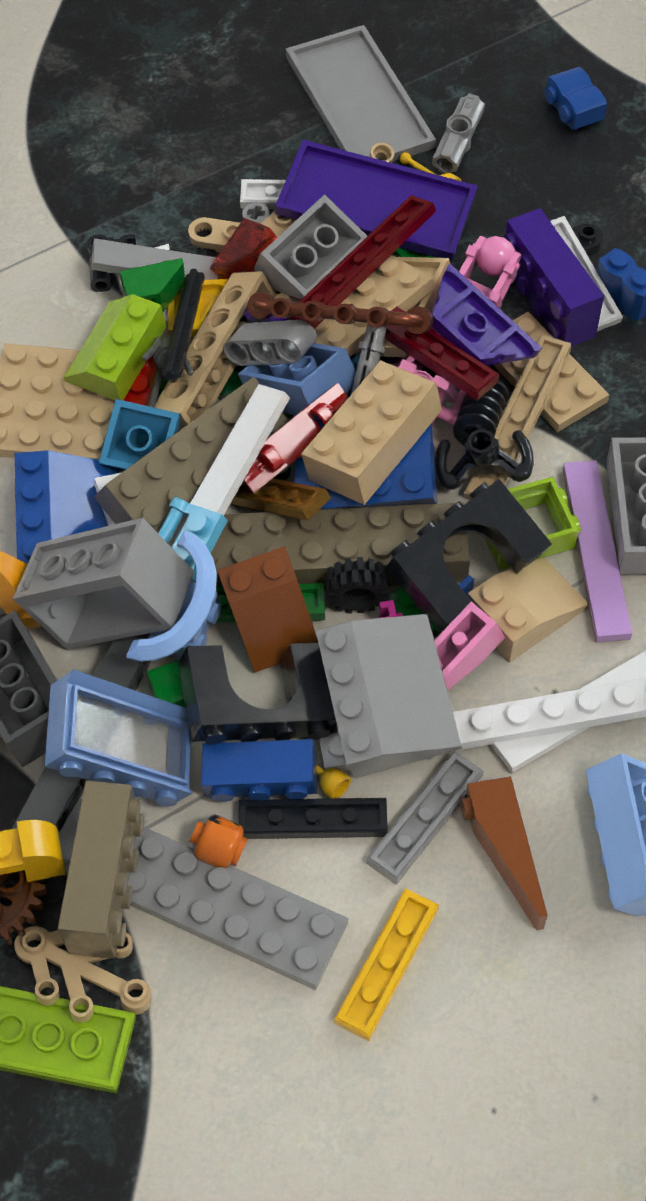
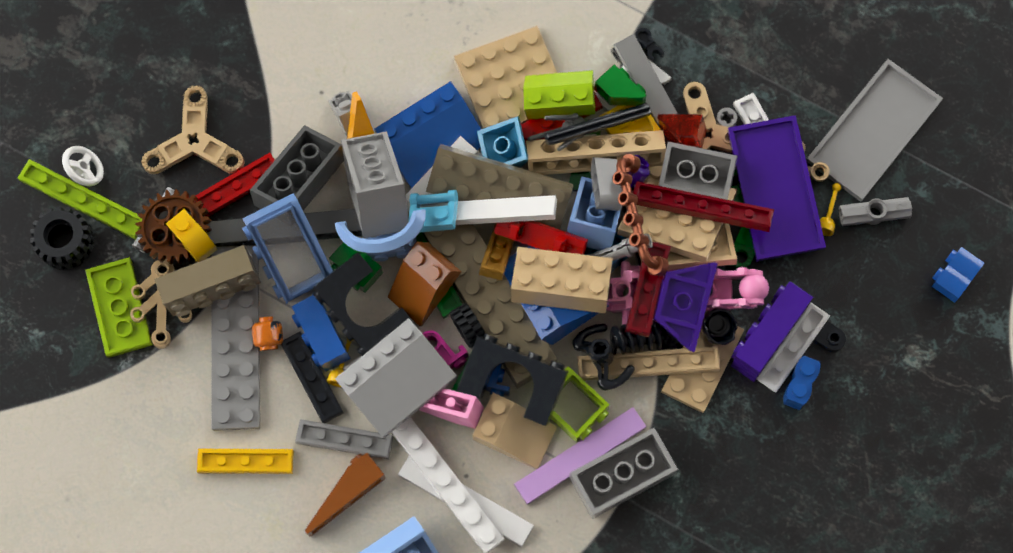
camera: 65 degrees right, 15 degrees up
(524, 316) = (719, 326): none -> black hair

